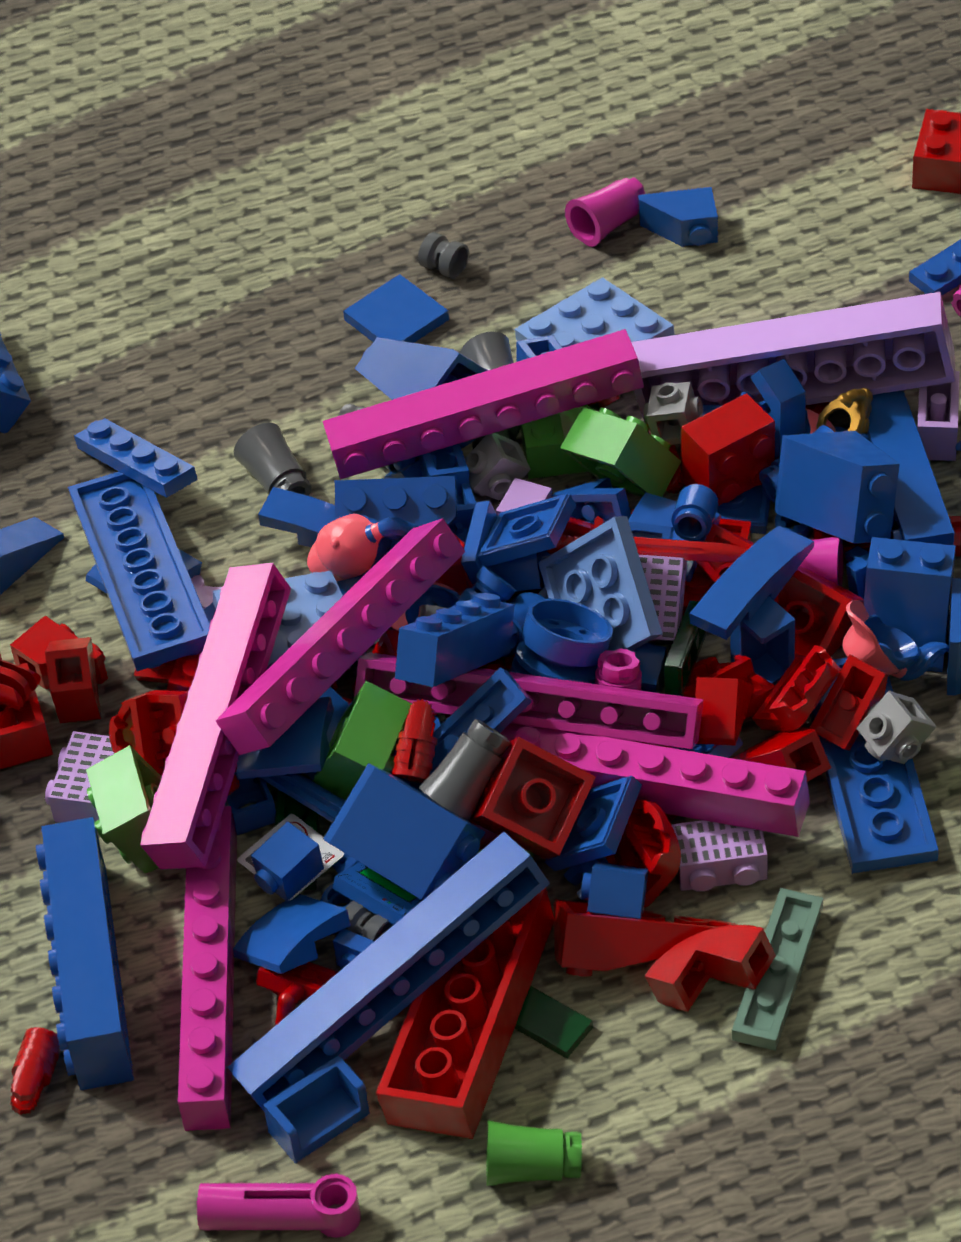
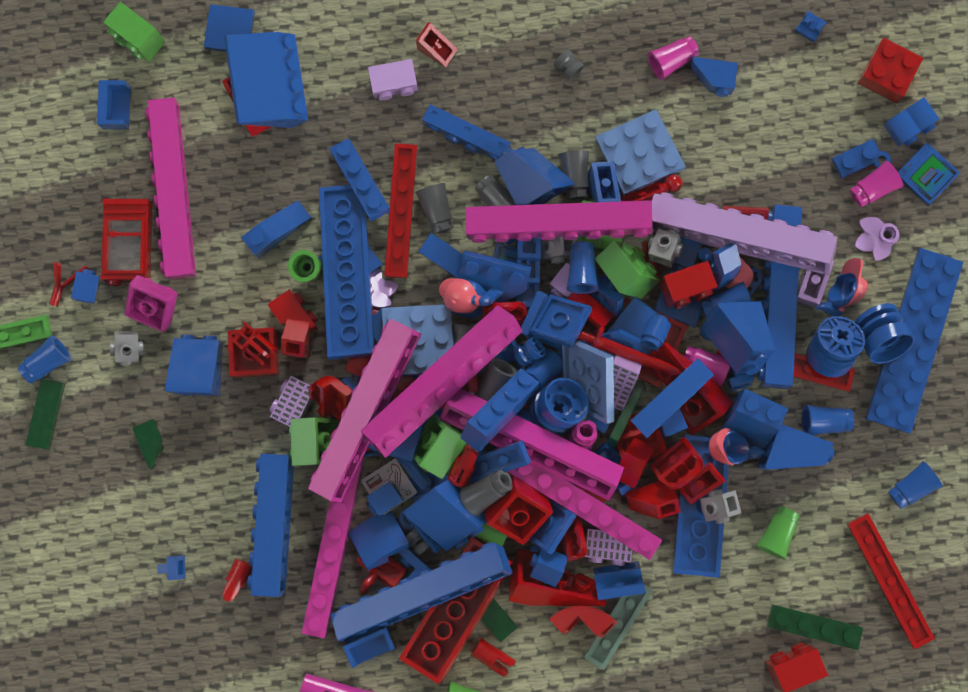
camera: 15 degrees right, 35 degrees up
(70, 571) = (299, 264): none -> bright green plant
(161, 330) = (393, 79): none -> lavender brick
(215, 487) = (401, 211): none -> red plate
(218, 276) = (435, 45): none -> red slope
(280, 369) = (461, 131): none -> blue piece
(396, 312) = (531, 102): blue tile -> none
(544, 467) = (582, 269): none -> blue plant
(549, 1073) = (487, 655): none -> red hinge
(754, 884) = (618, 580): none -> blue slope
(812, 137) = (810, 26): none -> blue tile
(857, 404) = (765, 276): pearl gold piece -> none

